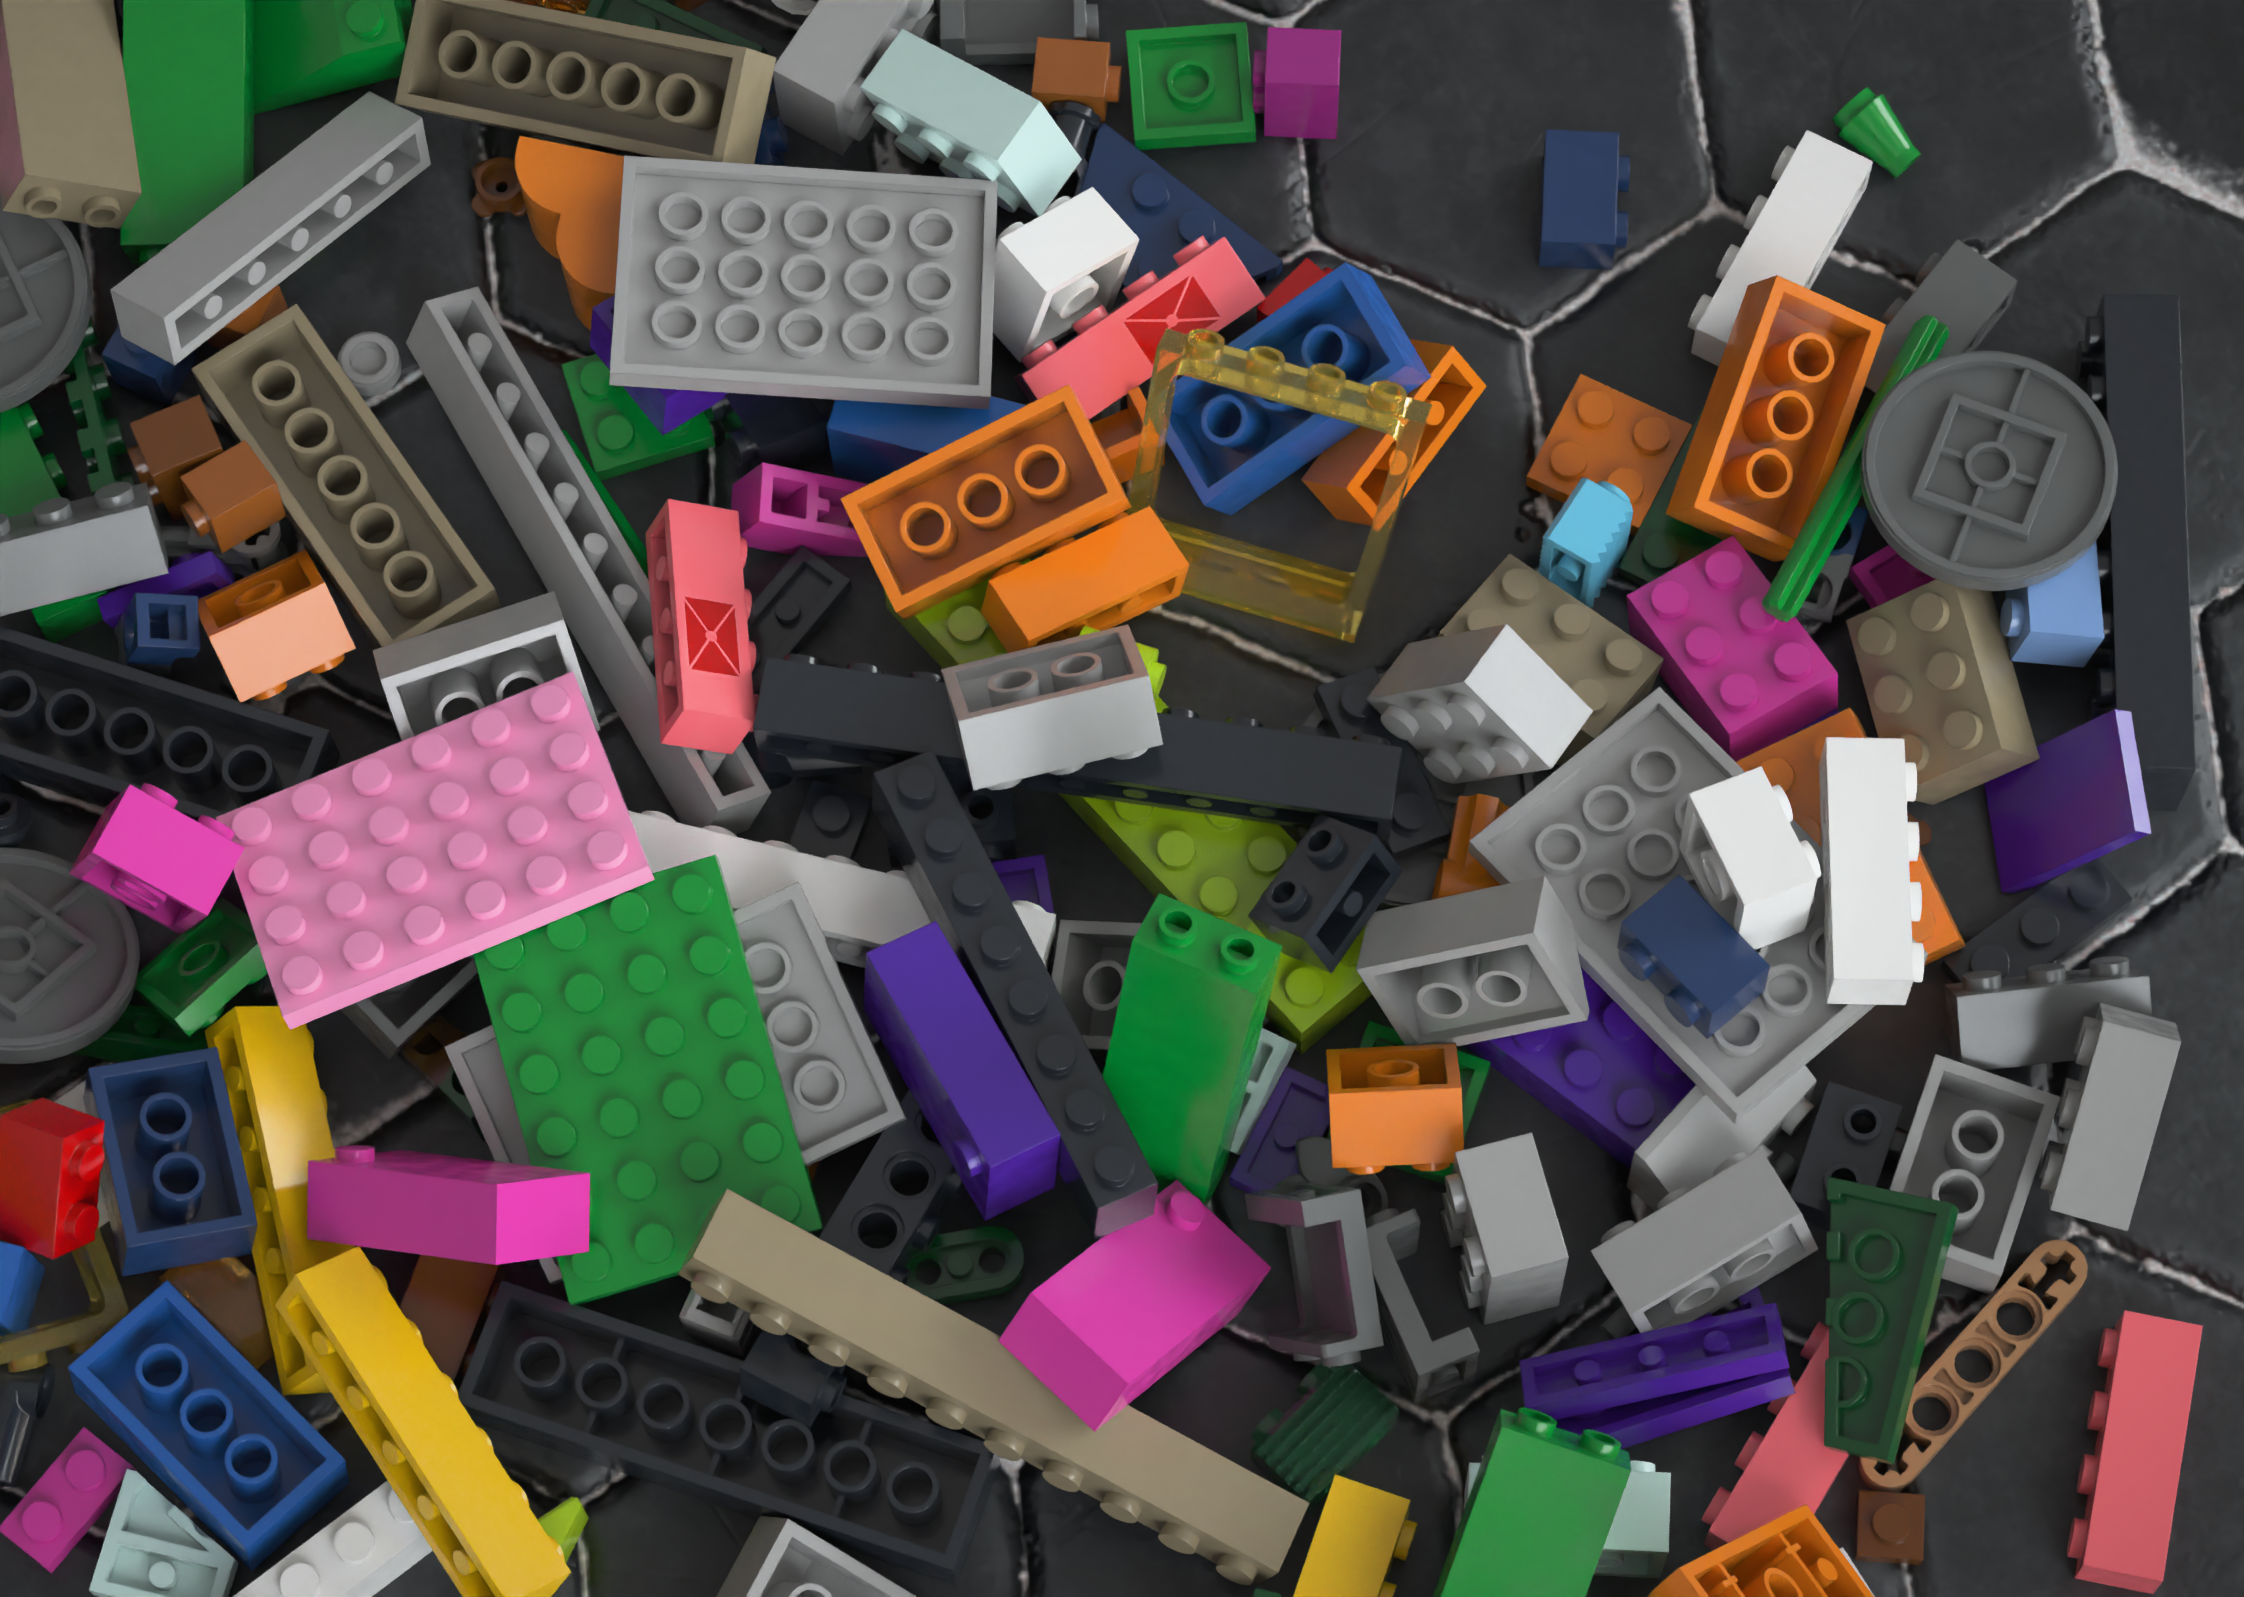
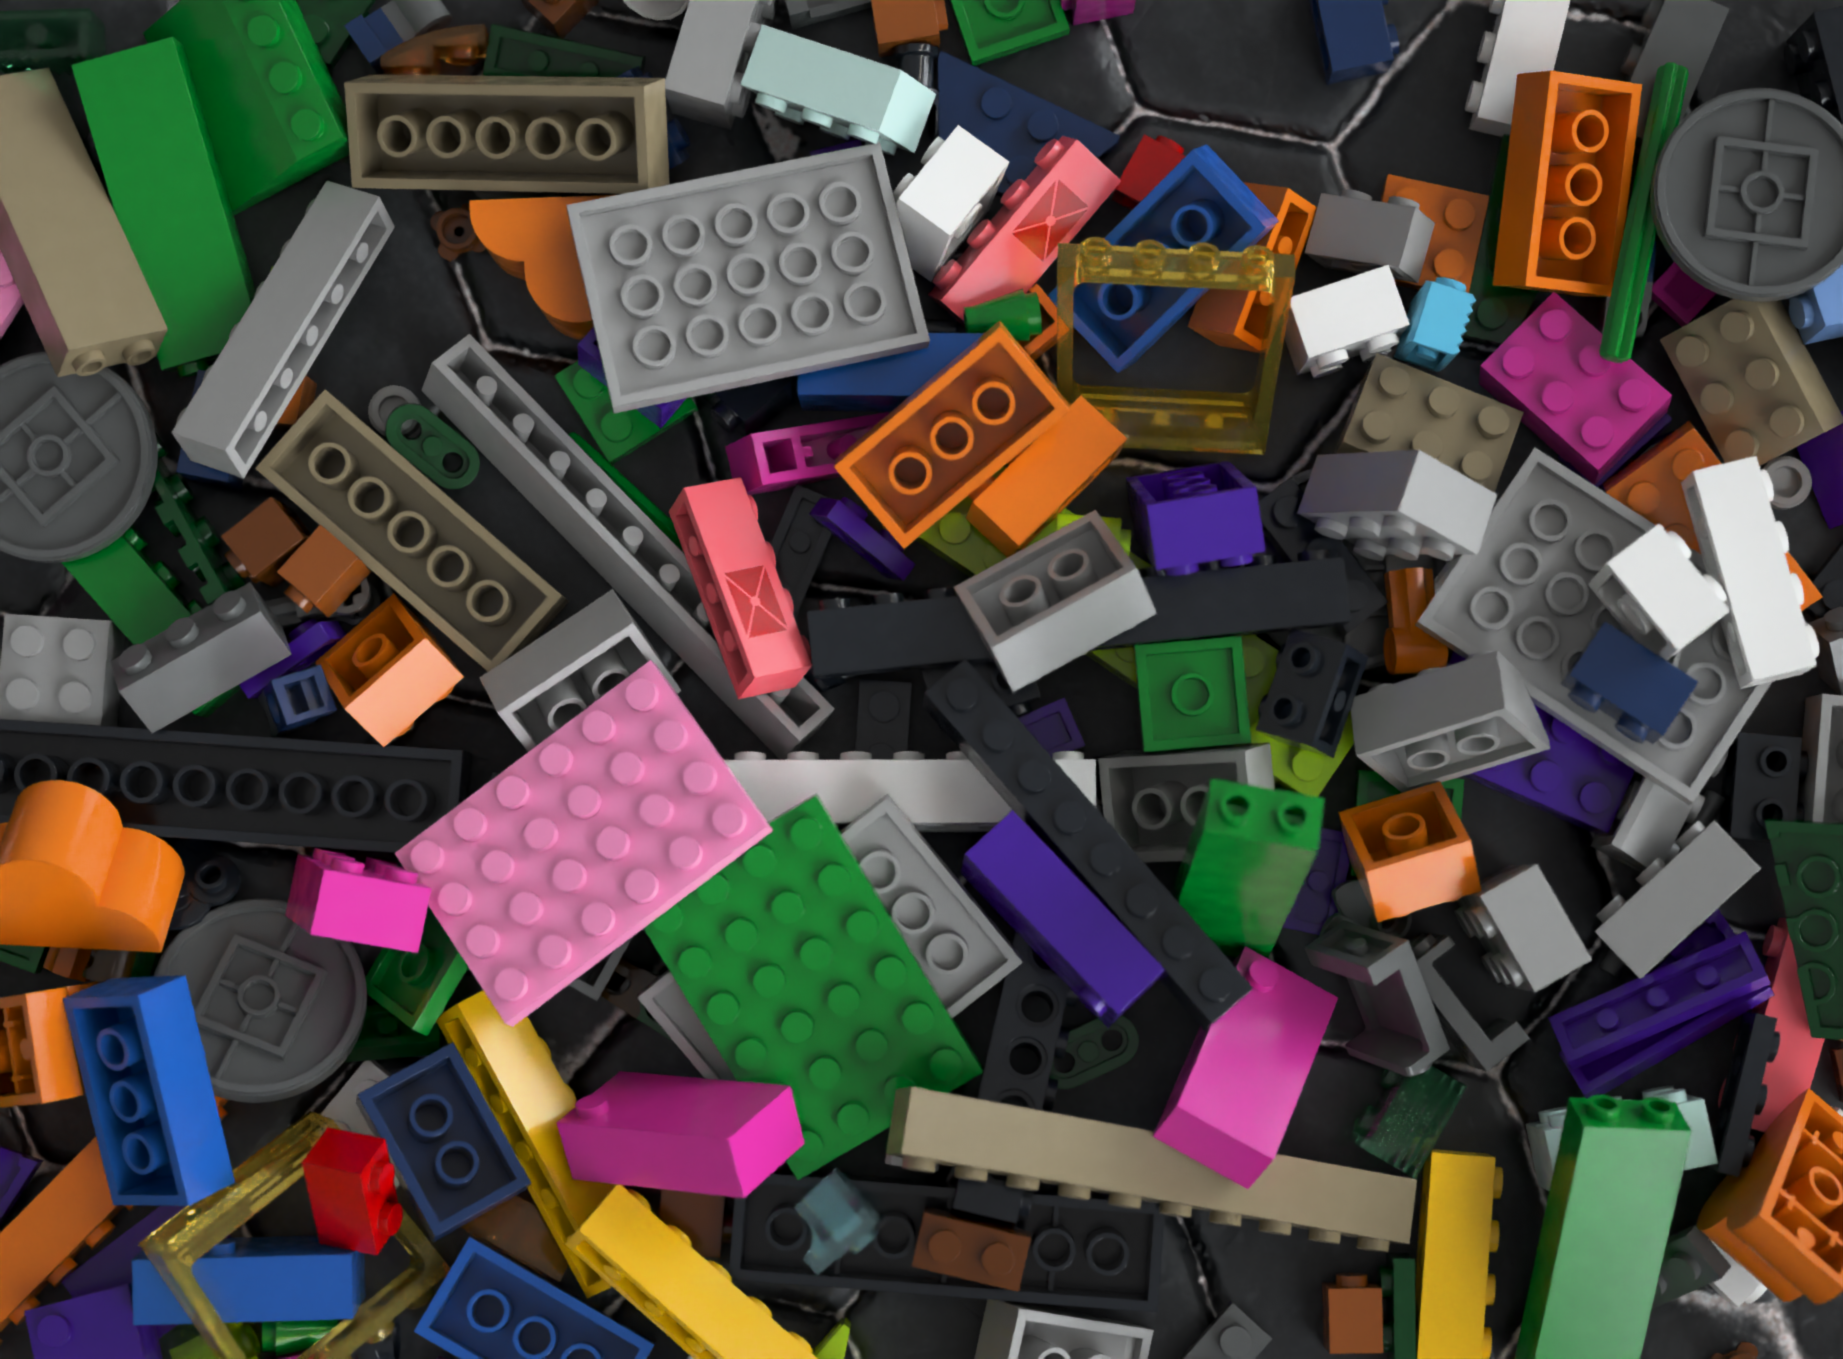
camera: 10 degrees left, 15 degrees up
(401, 403) = (432, 445): none -> dark green plate
(601, 1355) = (837, 1219): none -> clear light blue brick
(749, 1425) = (971, 1249): none -> reddish brown brick
(846, 596) = (848, 524): none -> dark purple plate
(1105, 408) = (1015, 310): none -> green cone
(1189, 854) = (1192, 694): none -> green plate
(1241, 664) = (1196, 517): none -> dark purple brick
(1479, 510) = (1345, 321): none -> white brick
(1536, 428) = (1366, 234): none -> light grey brick
(1726, 1486) = (1744, 1092): none -> black plate
(1960, 827) = (1789, 480): none -> light grey tile

